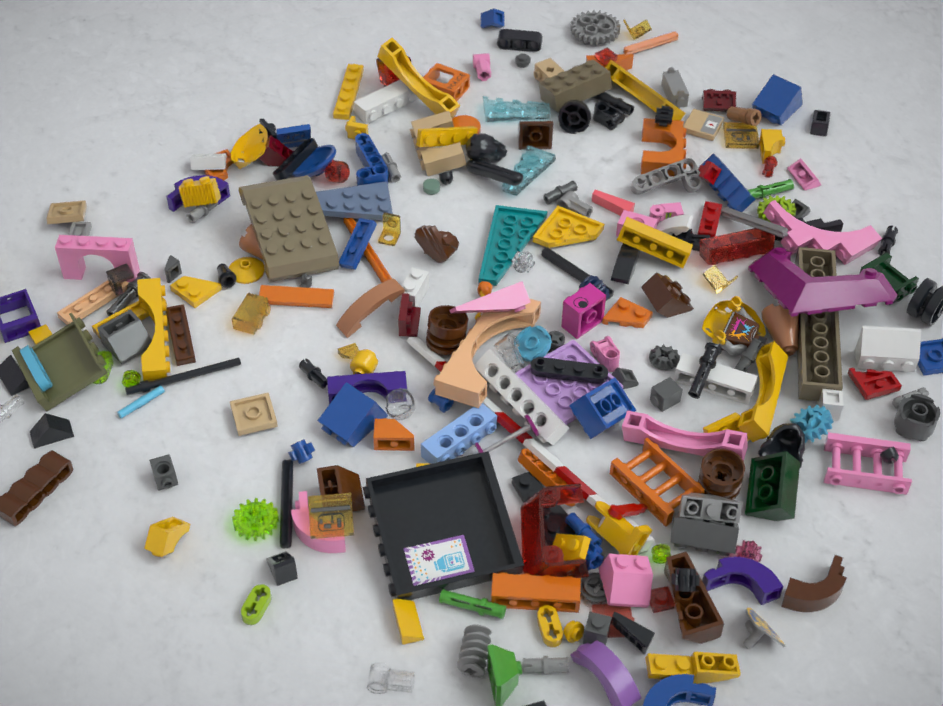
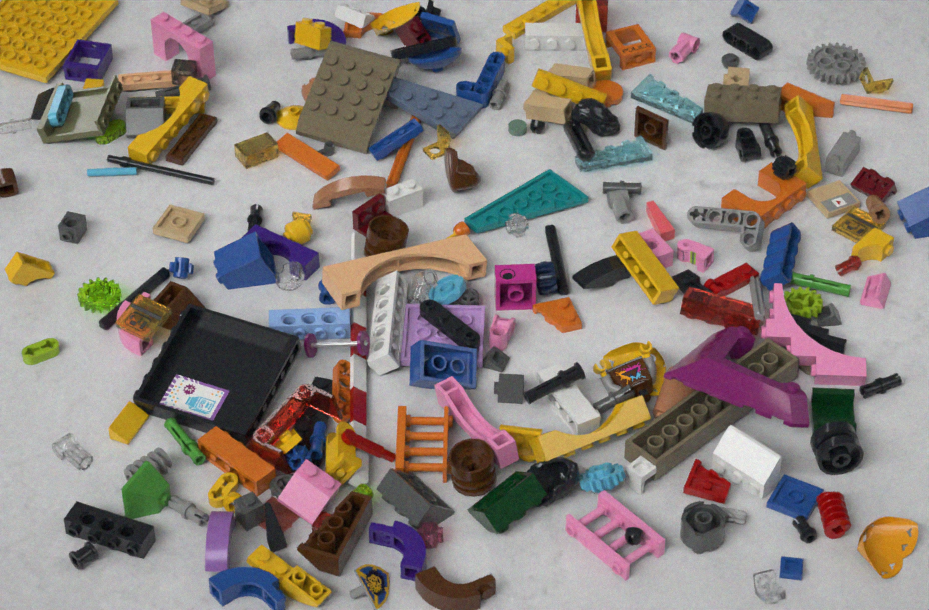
camera: 40 degrees right, 5 degrees down
(50, 430) = (31, 157): black slope -> none
(131, 378) = (119, 150): clear neon green bush -> none
(172, 269) = (234, 86): dark grey slope -> none
(195, 290) = (238, 111): yellow wing -> none
(282, 567) = (81, 338): black slope -> none
(337, 171) = (446, 74): clear red head -> none
(392, 436) = (257, 294): orange slope -> none
(503, 300) = (449, 238): bright pink wedge -> none
(567, 228) = (589, 218): yellow plate -> none
(605, 56) = (800, 89): clear red plate -> none
(663, 362) = (541, 360): dark grey gear -> none
(666, 296) = (608, 317): reddish brown slope -> none
(675, 224) = (685, 265): white slope -> none
(685, 579) = (338, 508): black gear -> none
(709, 172) = (767, 236): red tile -> none
(710, 507) = (432, 481): light grey slope -> none
(717, 279) = (672, 328): clear yellow bracket -> none

